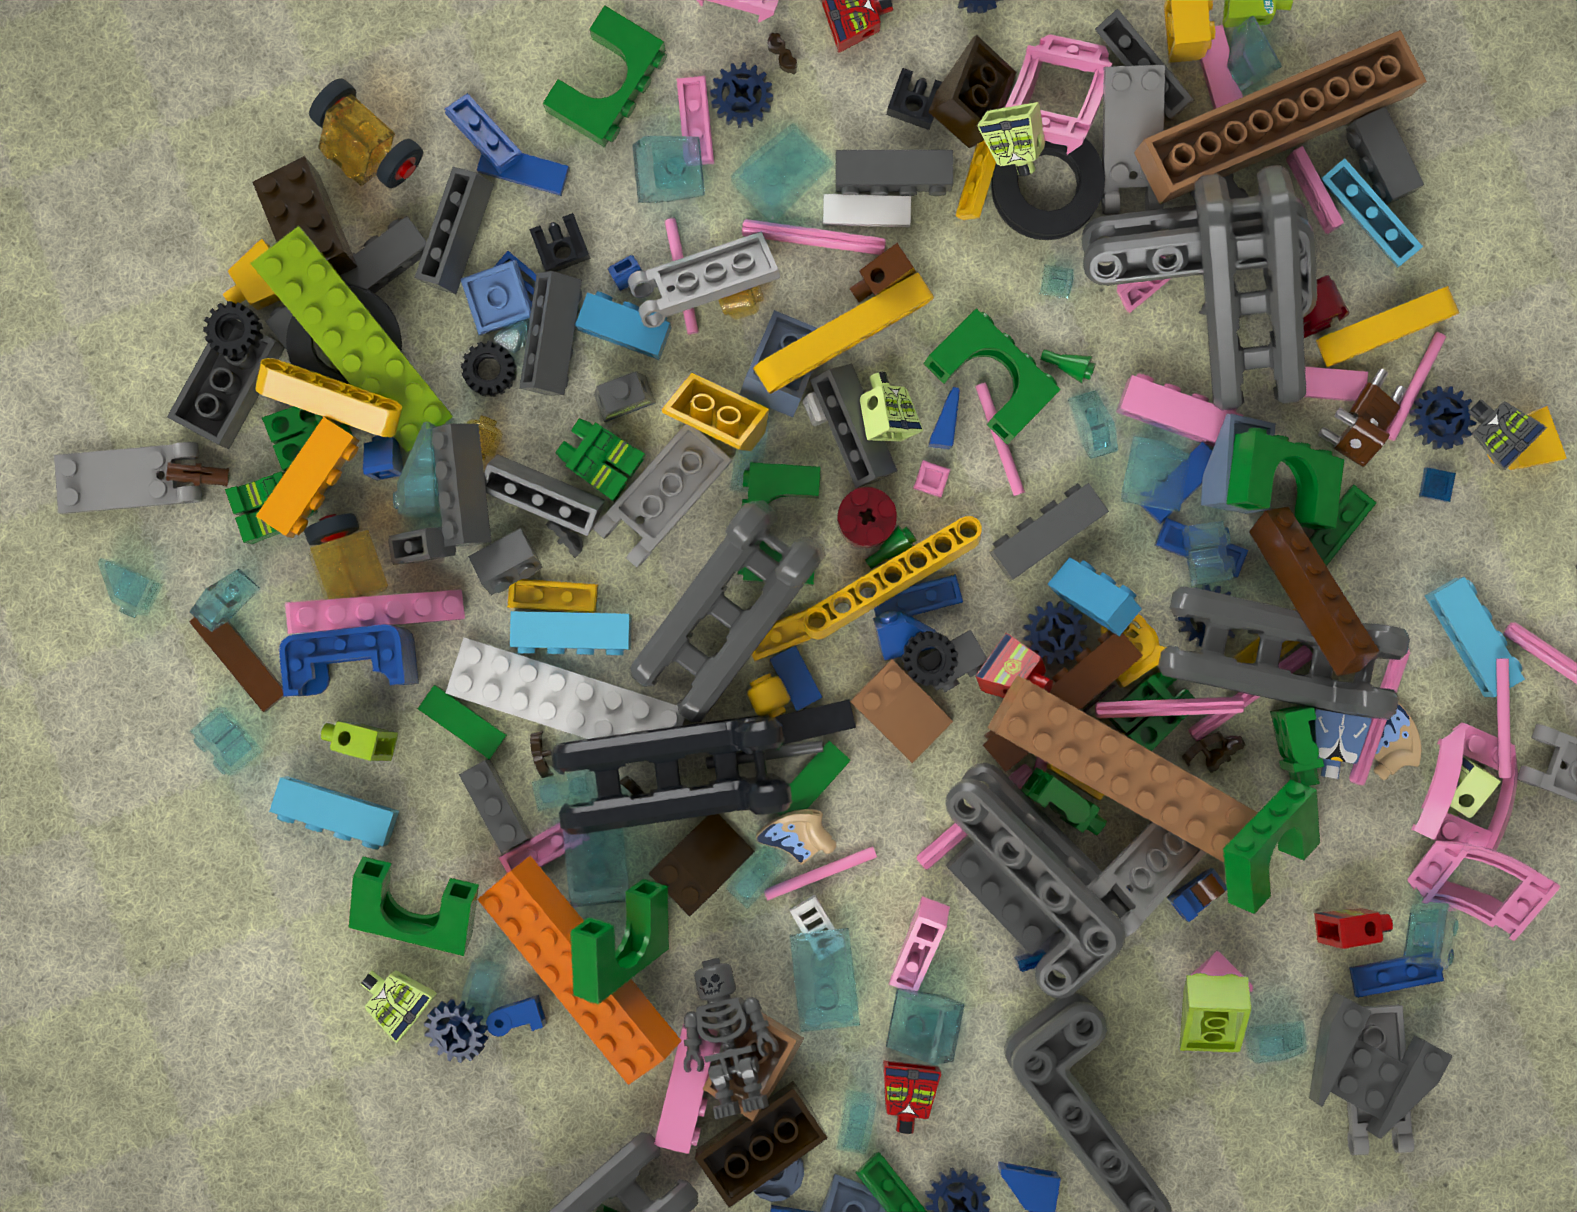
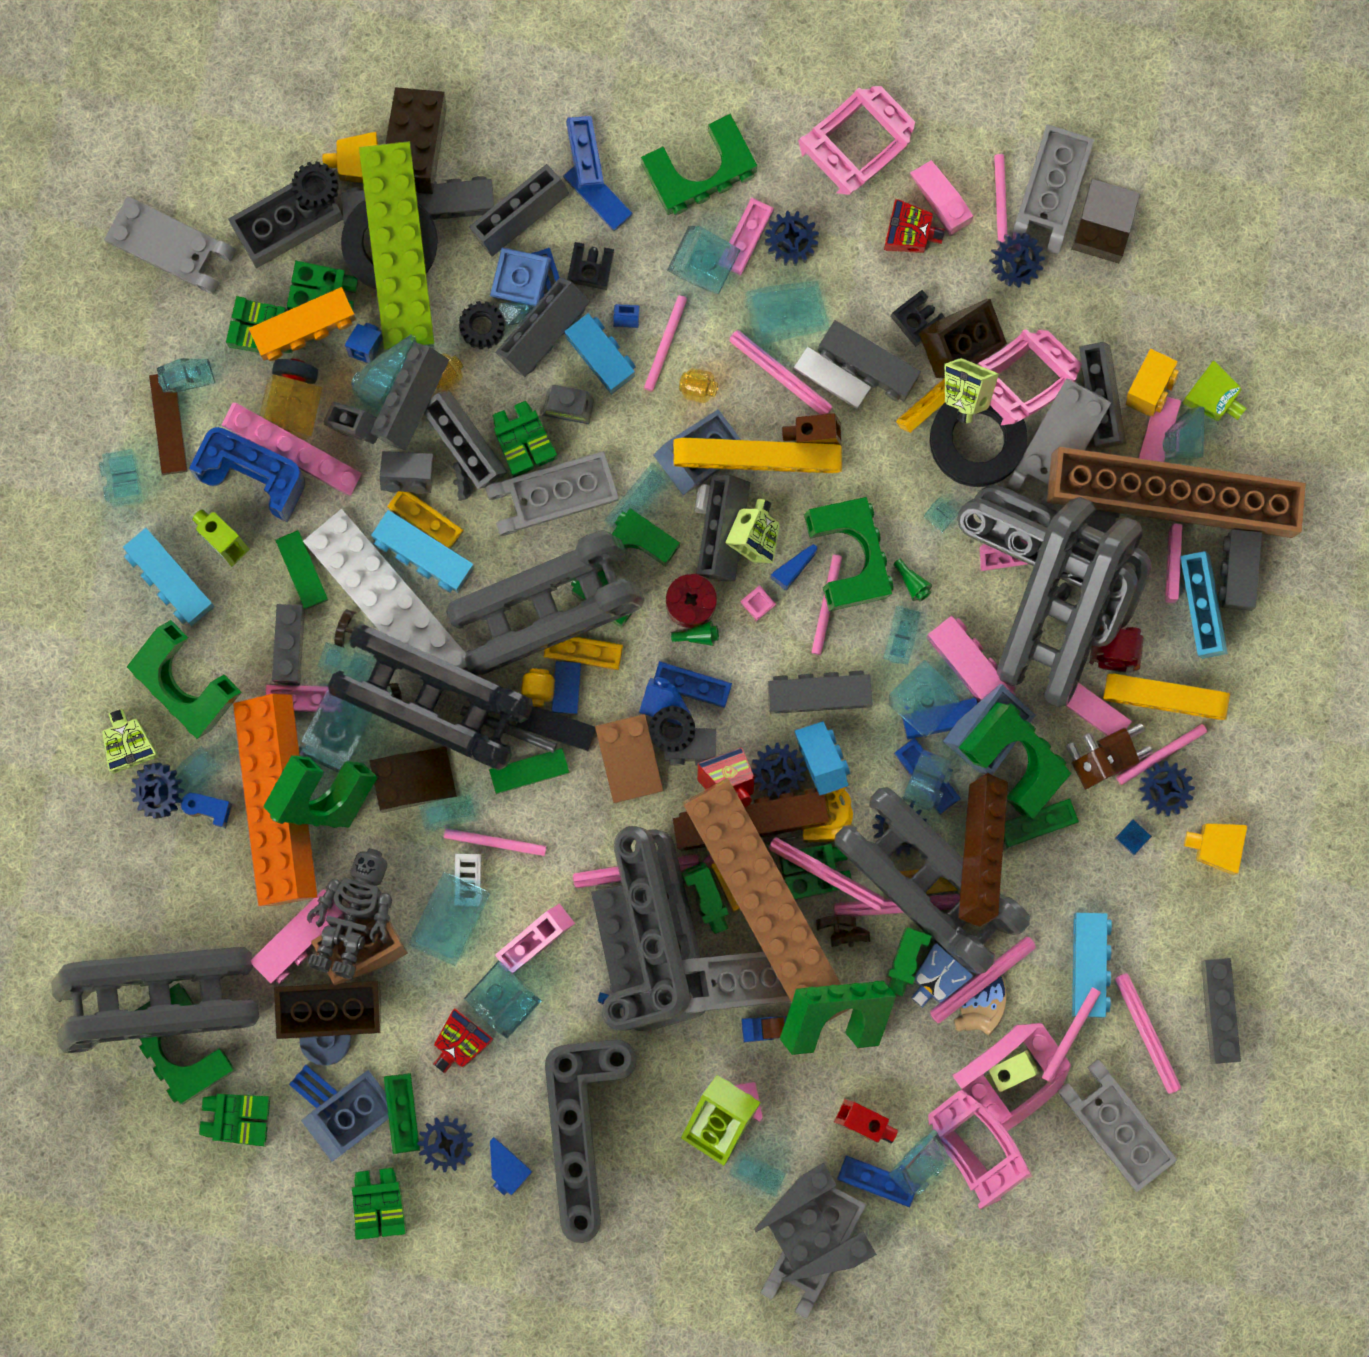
camera: 30 degrees right, 5 degrees down
(128, 588) = (121, 325): clear light blue slope -> none
(197, 474) = (222, 273): reddish brown pin -> none
(328, 397) = (353, 275): yellow beam -> none
(359, 139) = (491, 103): clear yellow brick -> none
(704, 277) = (679, 353): light grey hinge -> none
(718, 412) = (629, 457): yellow slope -> none
(777, 46) = (840, 218): dark brown piece -> none
(798, 834) = (496, 802): tan arm -> none
(856, 1121) = (406, 1040): clear light blue slope -> none
(900, 565) = (672, 662): yellow beam -> none
(1504, 431) = (1200, 823): torso -> none

